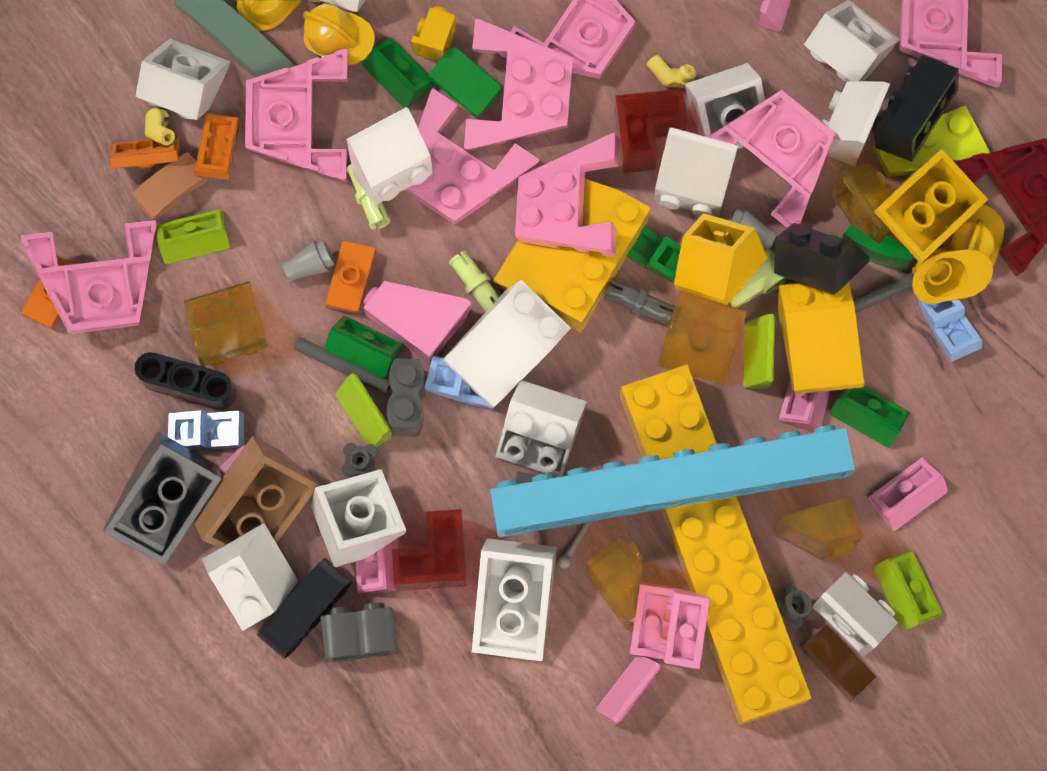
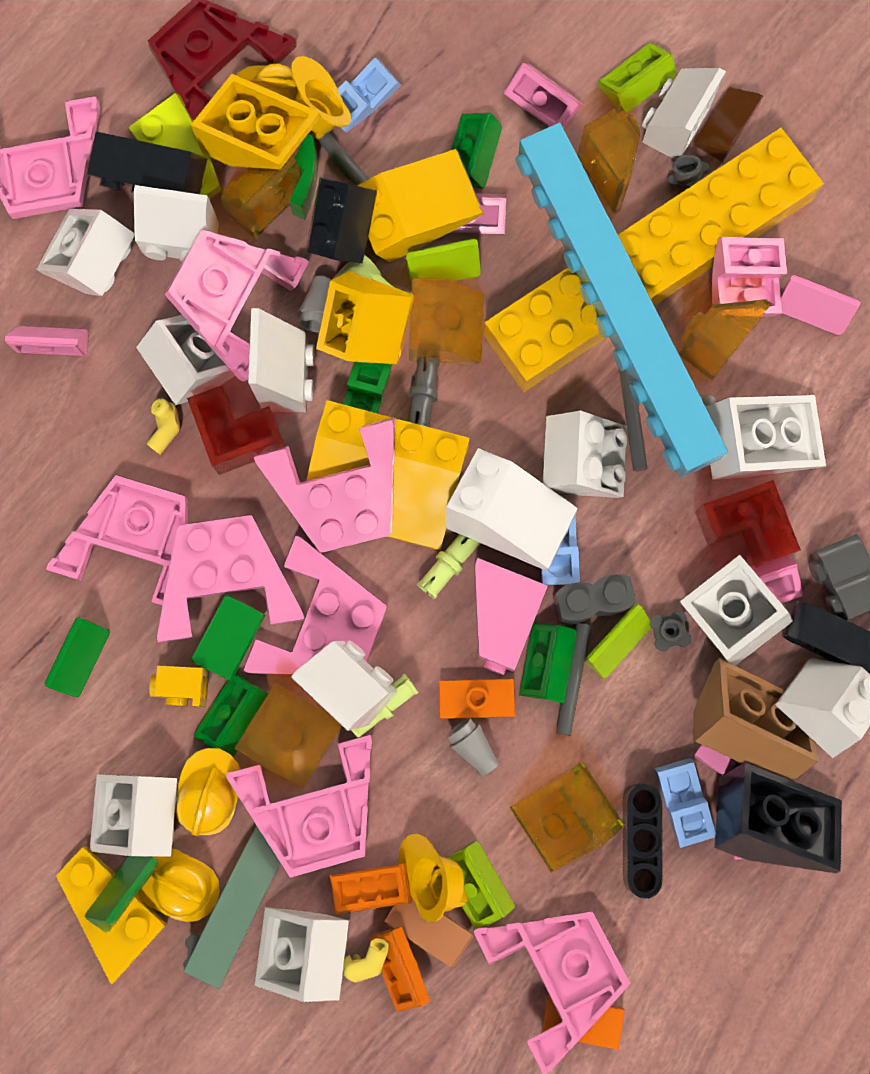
camera: 105 degrees left, 5 degrees up
(205, 197) = (433, 880): none -> yellow piece
(361, 101) = (289, 735): none -> clear yellow slope

